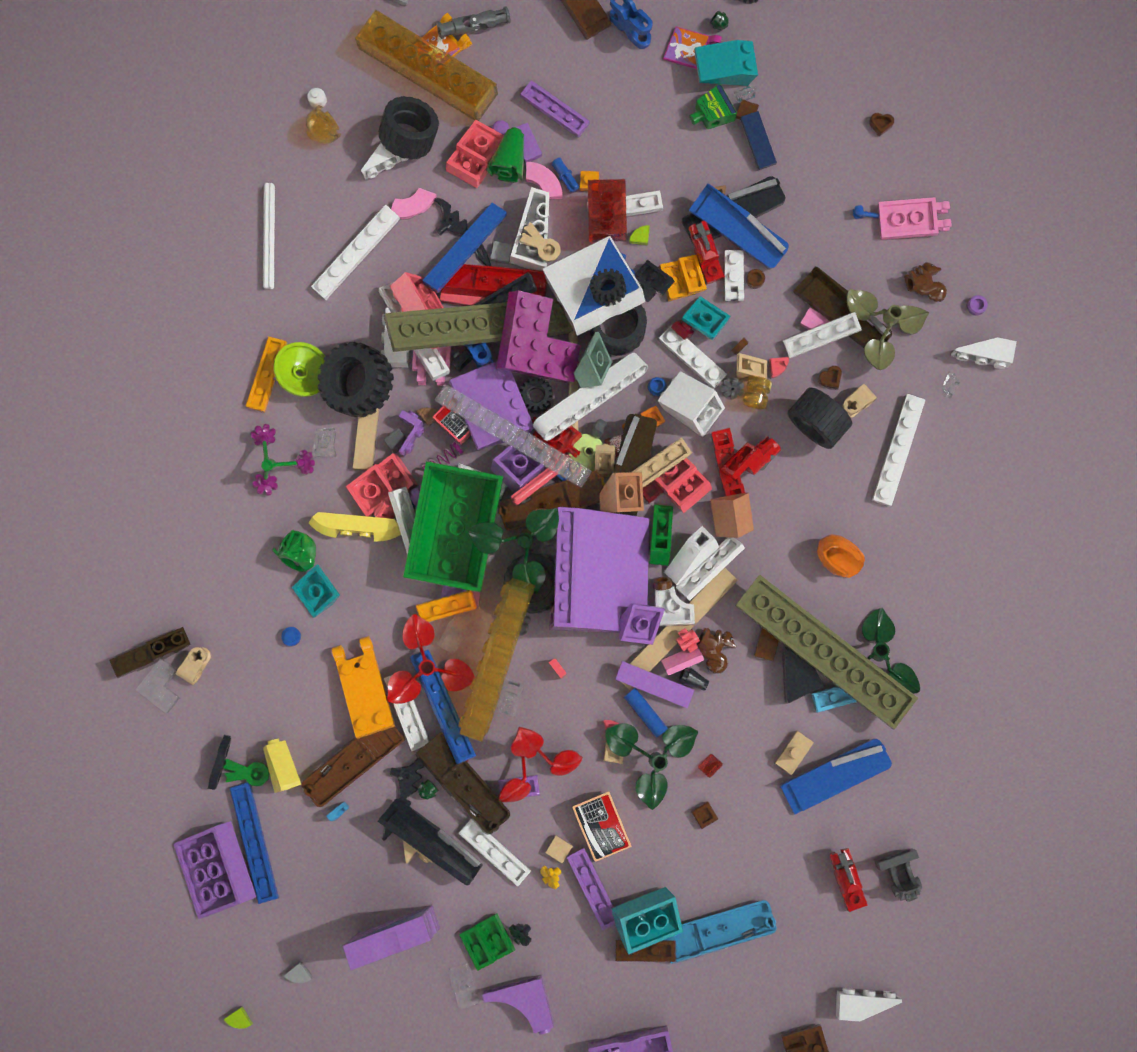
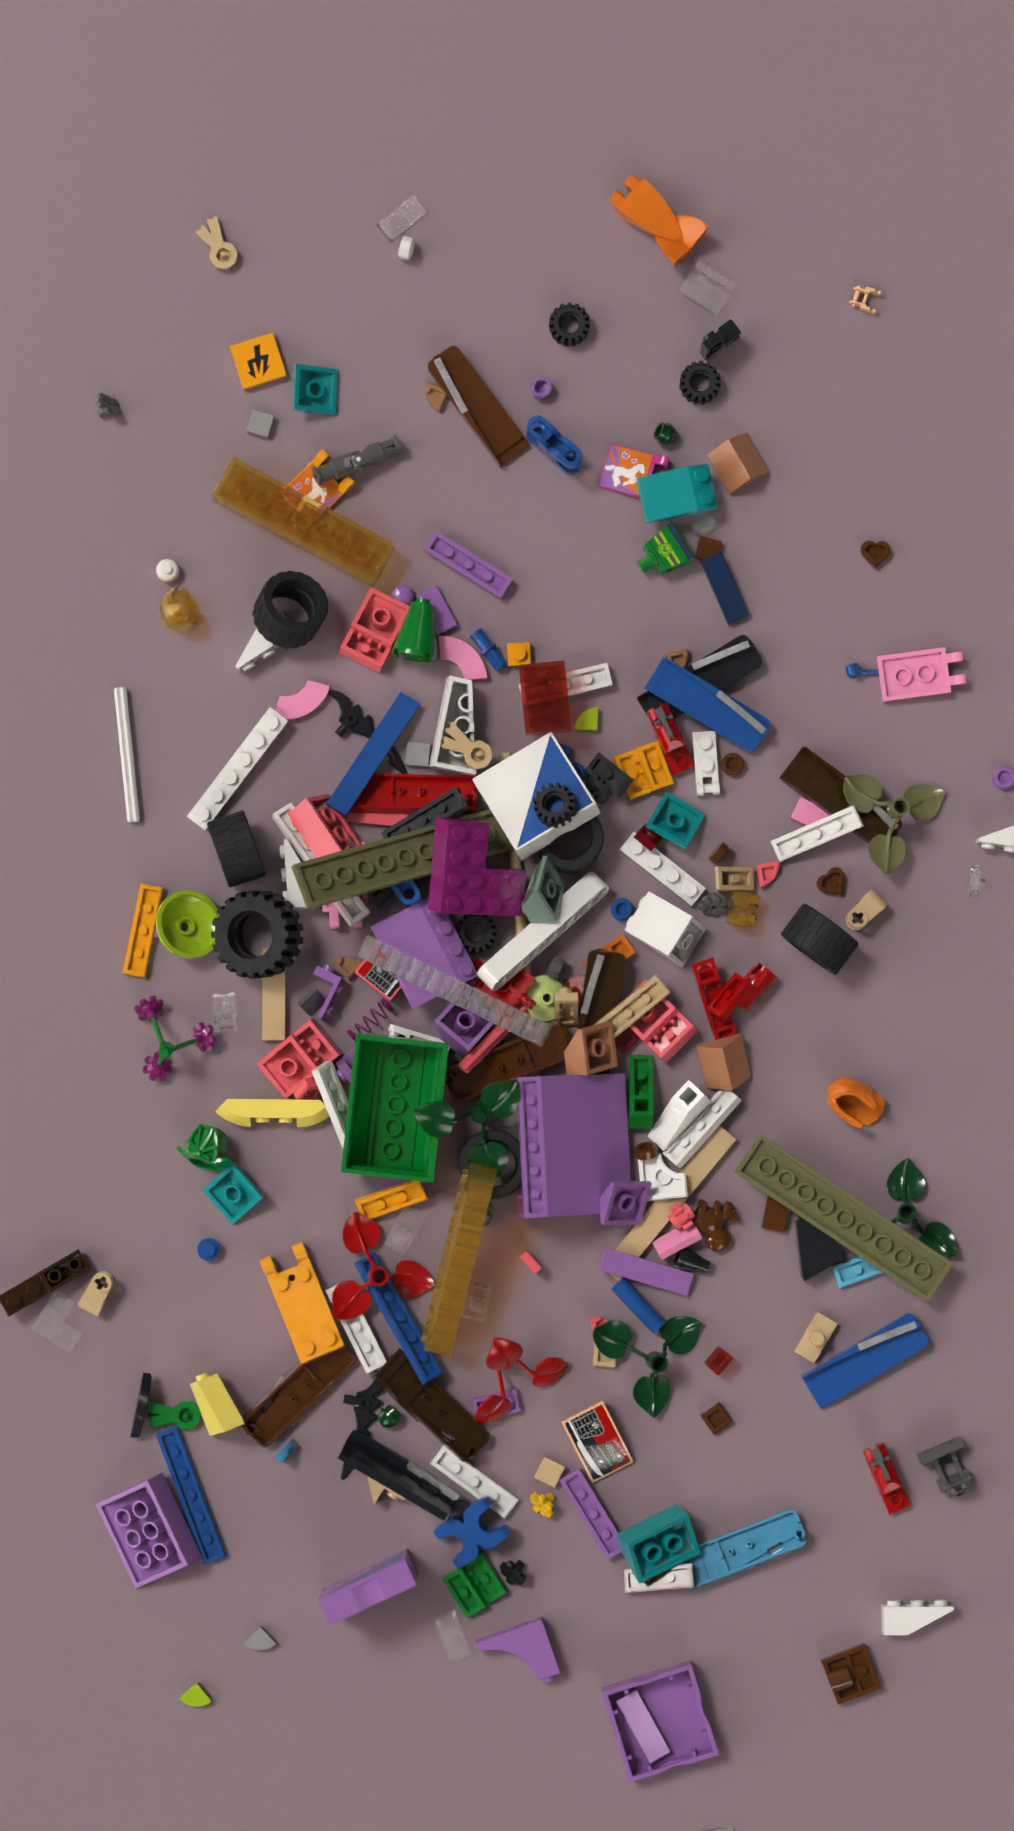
camera: 15 degrees left, 5 degrees up
(345, 310) = (236, 849): none -> black tyre
(488, 895) = (472, 1531): none -> blue piece
(775, 47) = (737, 462): none -> nougat slope
(898, 450) = (918, 965): white plate -> none
(923, 283) = (936, 757): reddish brown animal -> none

